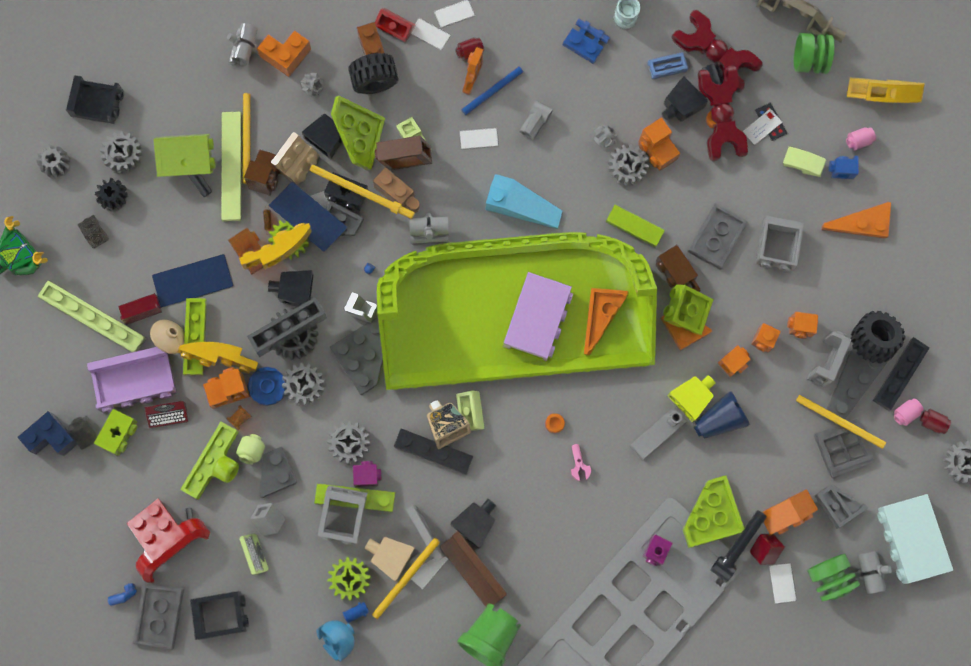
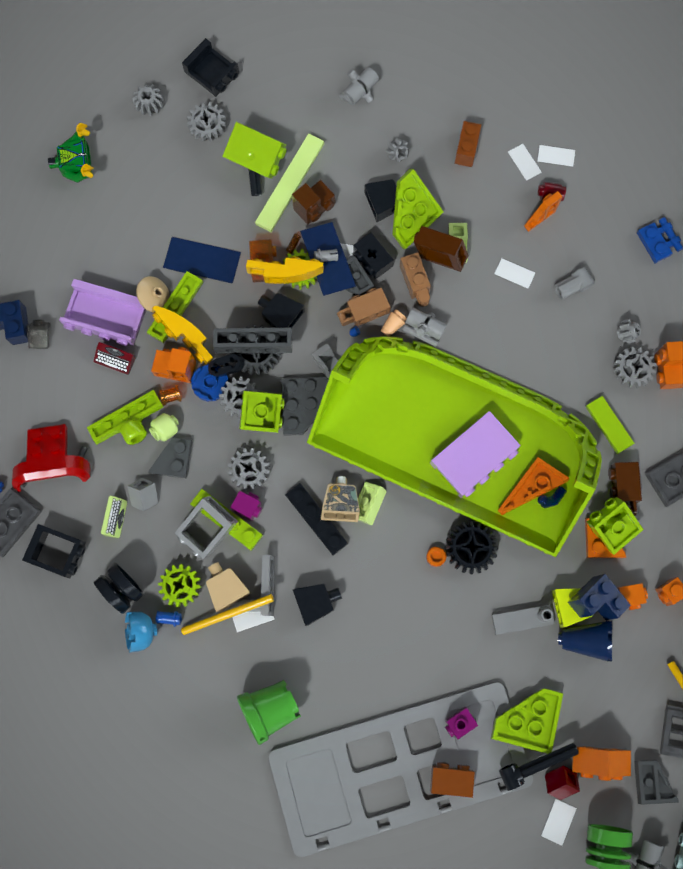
camera: 40 degrees right, 0 degrees up
(91, 317) = (102, 244): yellowish green tile -> none
(93, 231) = (144, 174): clear smoke bracket -> none
(115, 199) = (180, 157): black gear -> none
(116, 422) = (54, 349): lime brick -> none
(140, 309) = (144, 259): dark red panel -> none
(246, 132) = (322, 156): yellow piece -> none
(271, 359) = (226, 369): none -> black beam
(285, 56) = (391, 115): orange brick -> none
(295, 159) = (345, 204): tan plate -> none
(297, 612) = (119, 586): none -> black wheel
(305, 215) = (326, 255): none -> light grey pin
(330, 385) = (261, 411): none -> lime plate
(366, 242) = (365, 308): none -> medium nougat brick
(373, 73) = (454, 167): black tyre -> none
(394, 24) = (498, 137): red slope -> none
(394, 207) = (405, 290): yellow bar -> none
(399, 241) = (393, 323): none -> light nougat cone
(473, 569) = (289, 642): reddish brown panel -> none
(491, 91) = (551, 238): blue bar -> none
(517, 201) = (517, 346): medium azure wedge -> none
(576, 390) = (471, 556): none -> black gear
(579, 464) = (437, 604): bright pink bar -> none
(625, 318) = (553, 500): none -> arm
(677, 602) = (452, 781): none -> dark orange brick
(711, 376) = (601, 596): none -> dark blue brick

